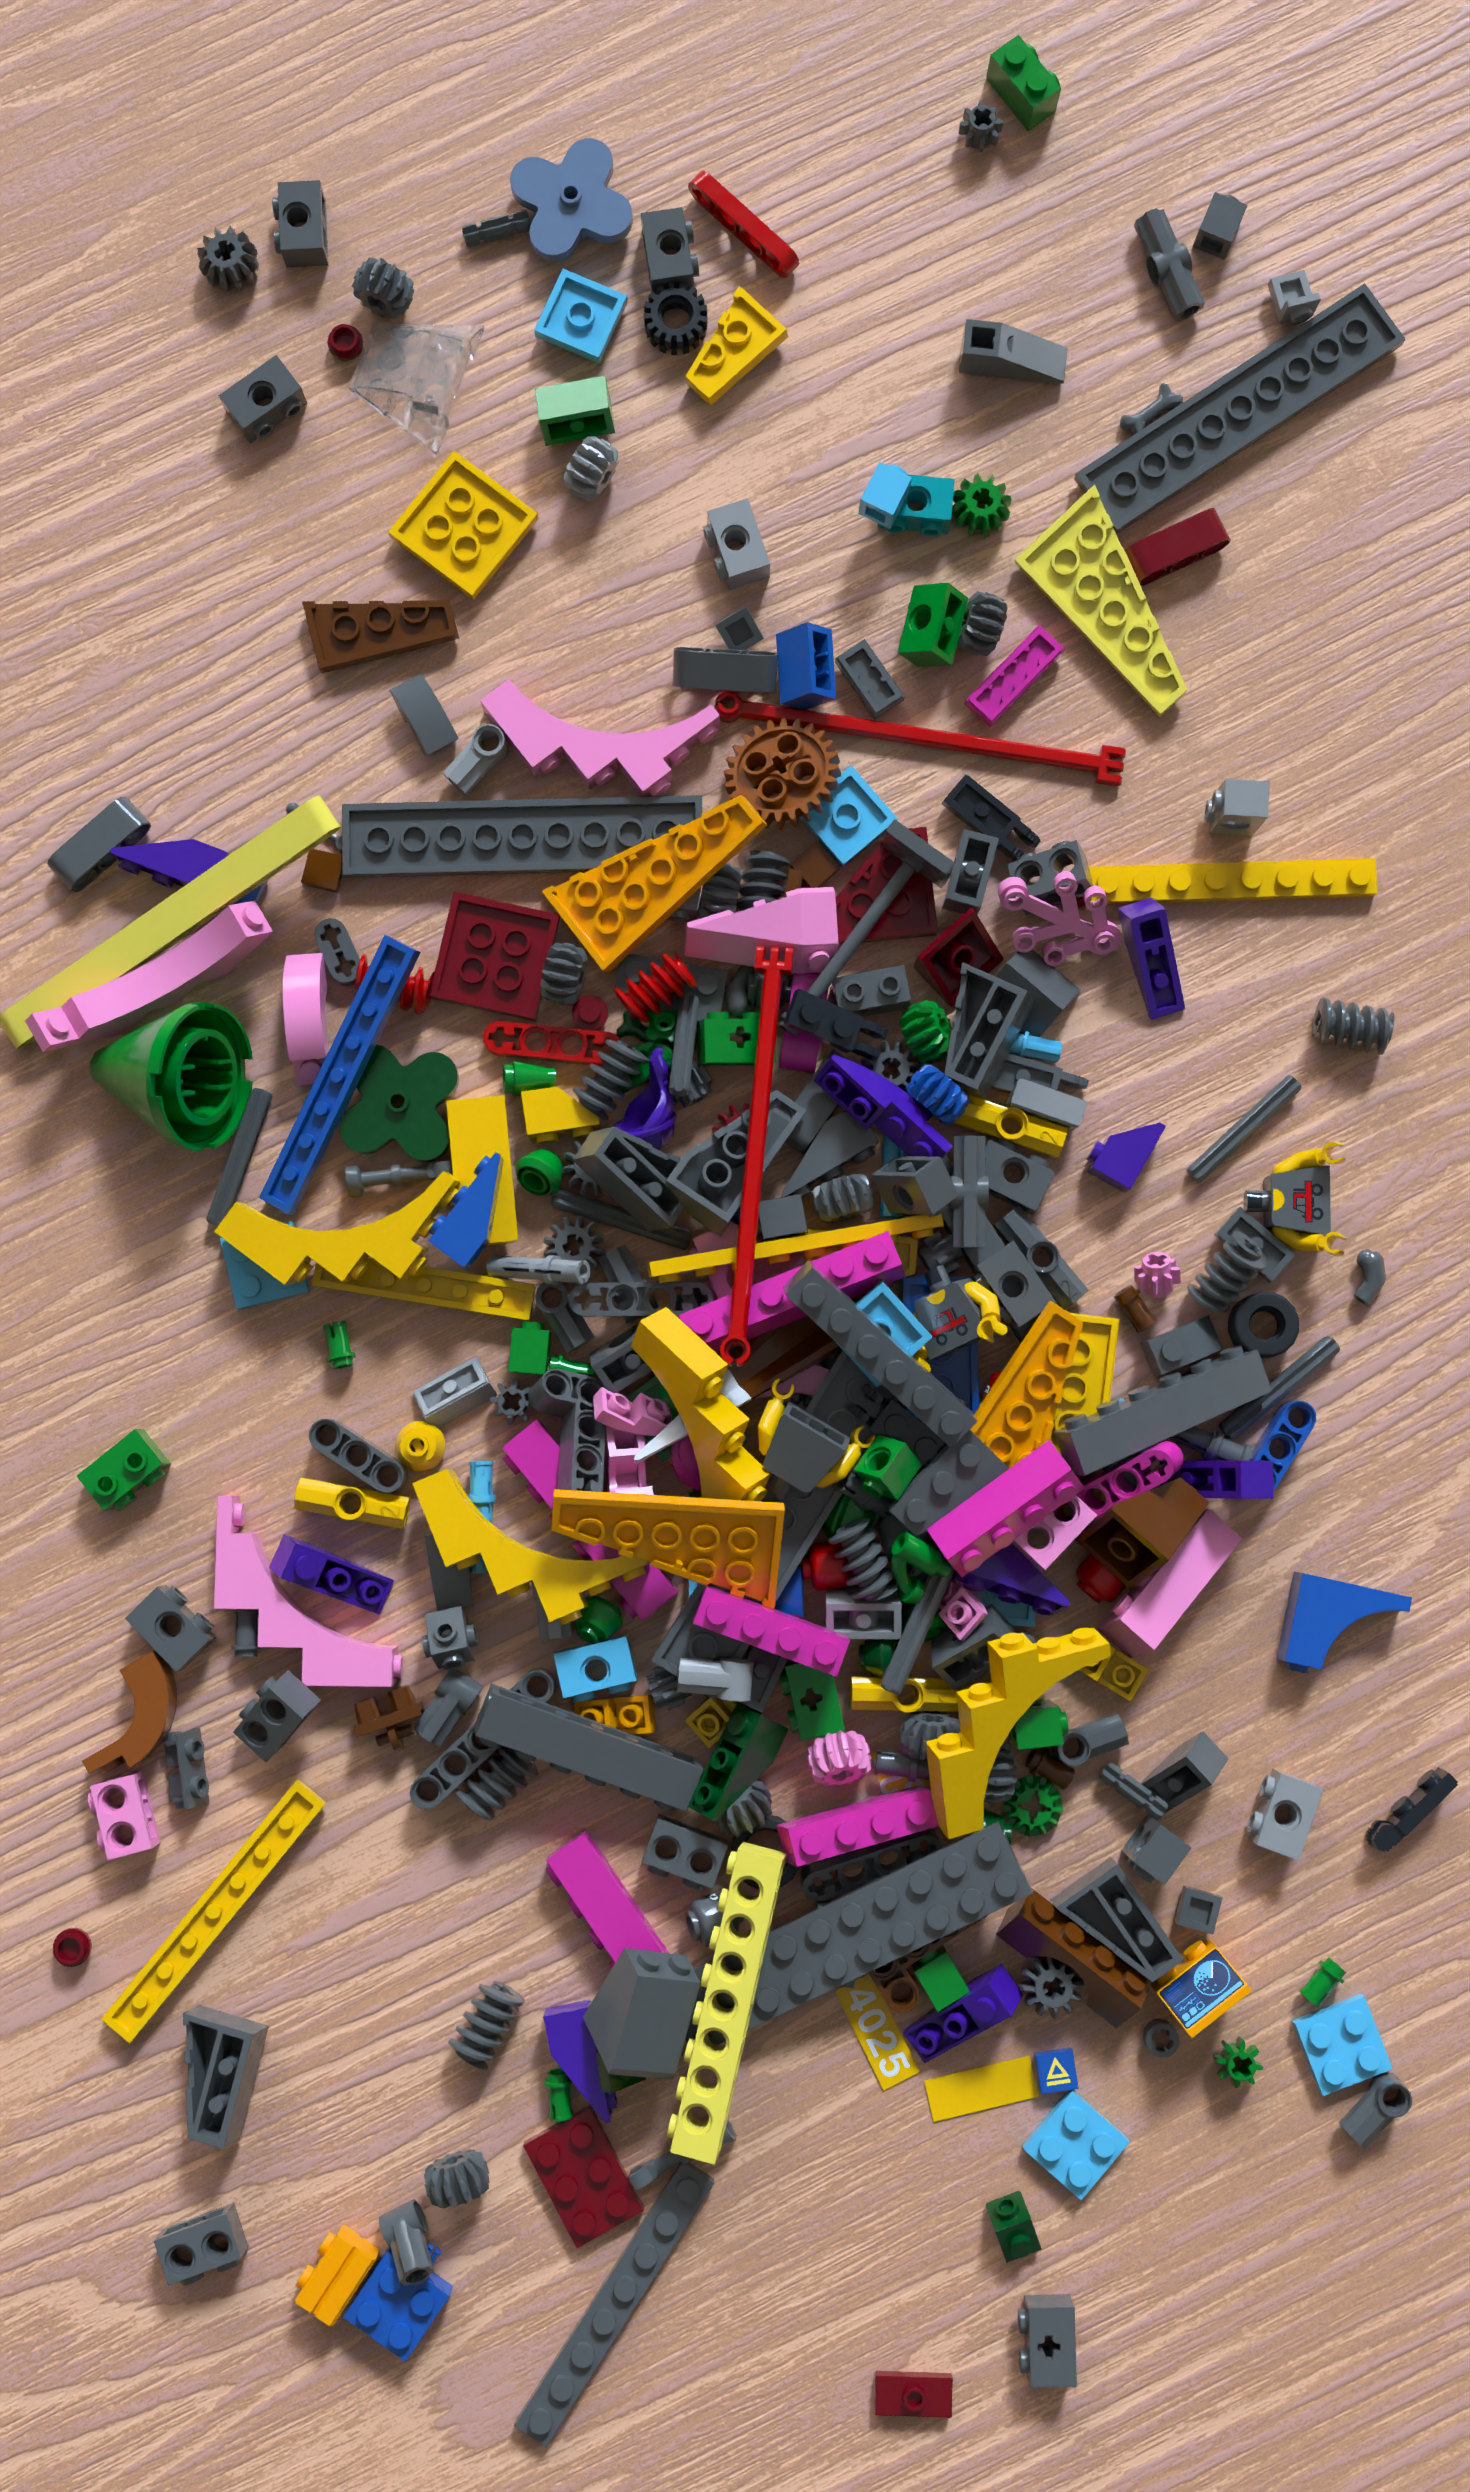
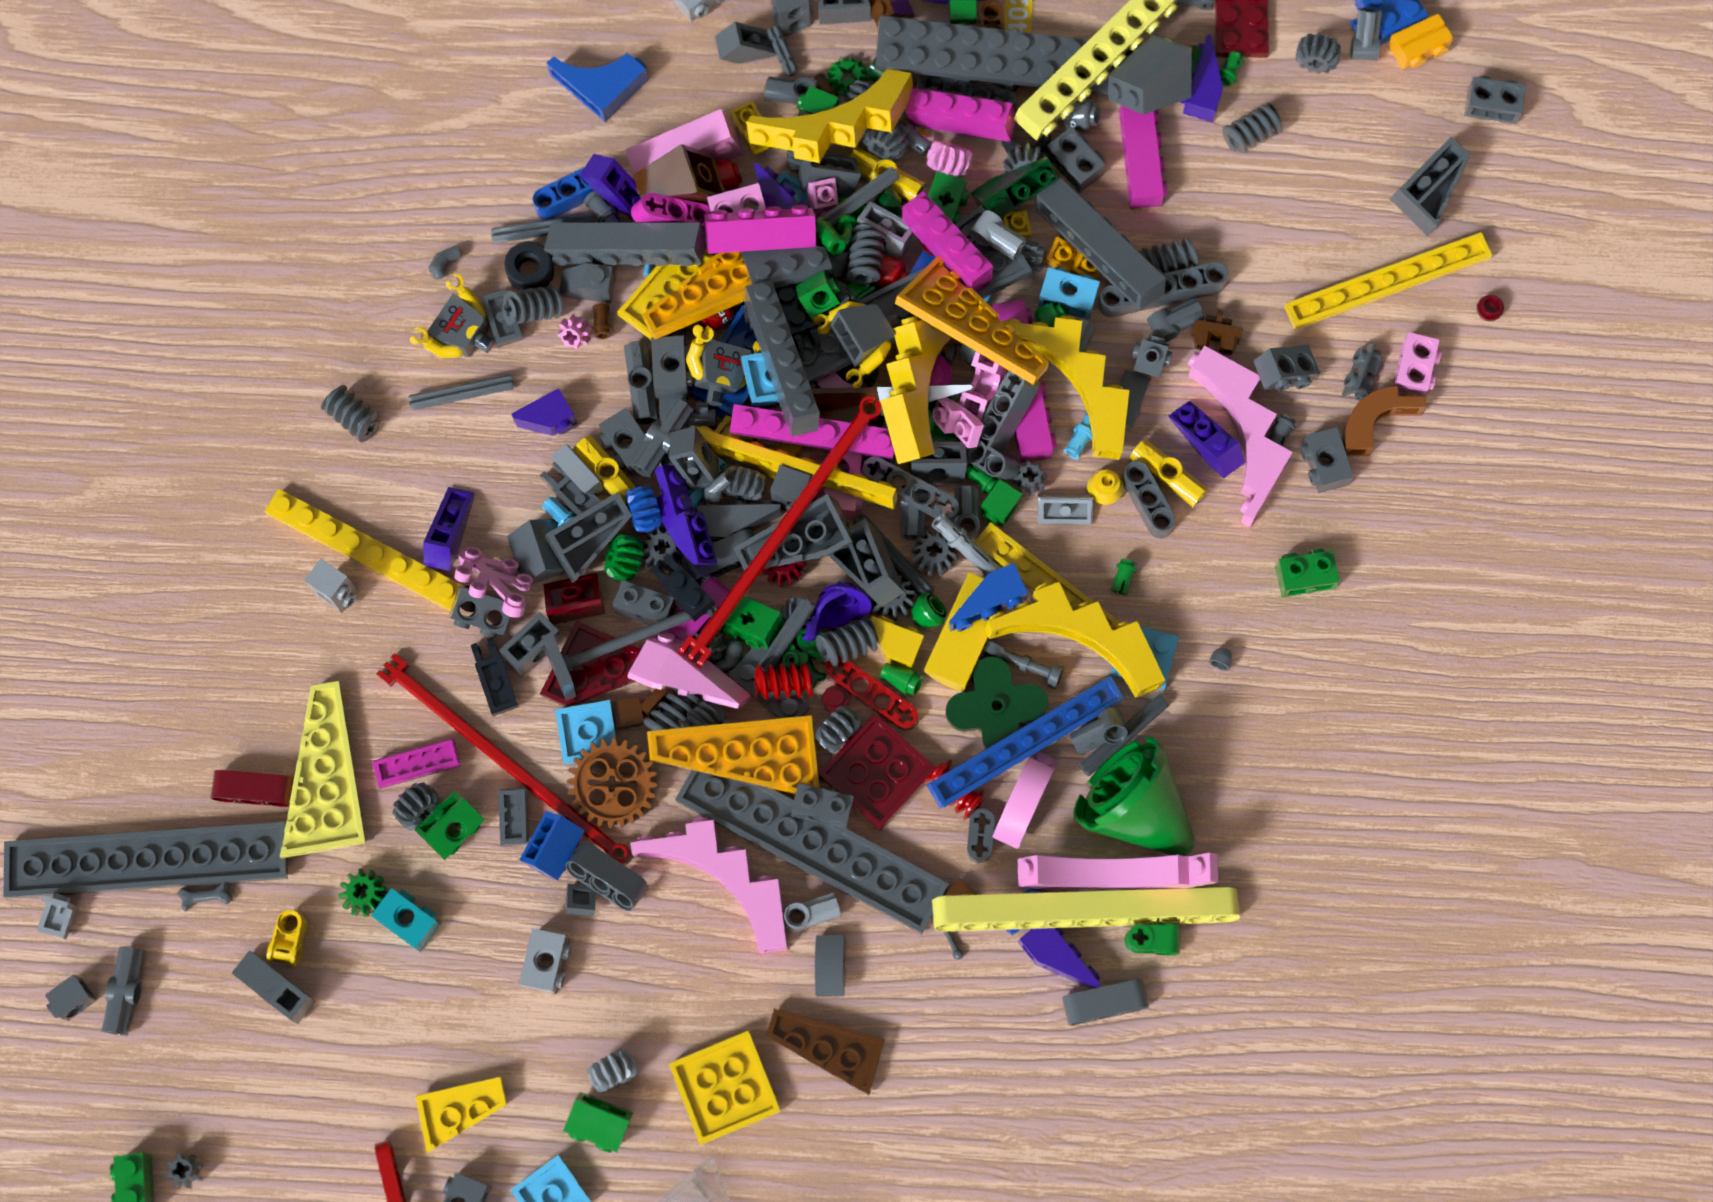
camera: 145 degrees left, 10 degrees down
(78, 939) = (1159, 939): none -> green piece
(172, 1311) = (1221, 659): none -> dark grey hinge
(257, 1146) = (1107, 729): none -> dark grey piece
(528, 870) = (822, 806): none -> dark grey brick
(671, 299) = (468, 1152): black tyre -> none
(867, 1169) = (714, 490): none -> dark grey arm
(885, 494) = (425, 925): medium azure brick -> none
(1029, 409) = (287, 940): none -> yellow piece

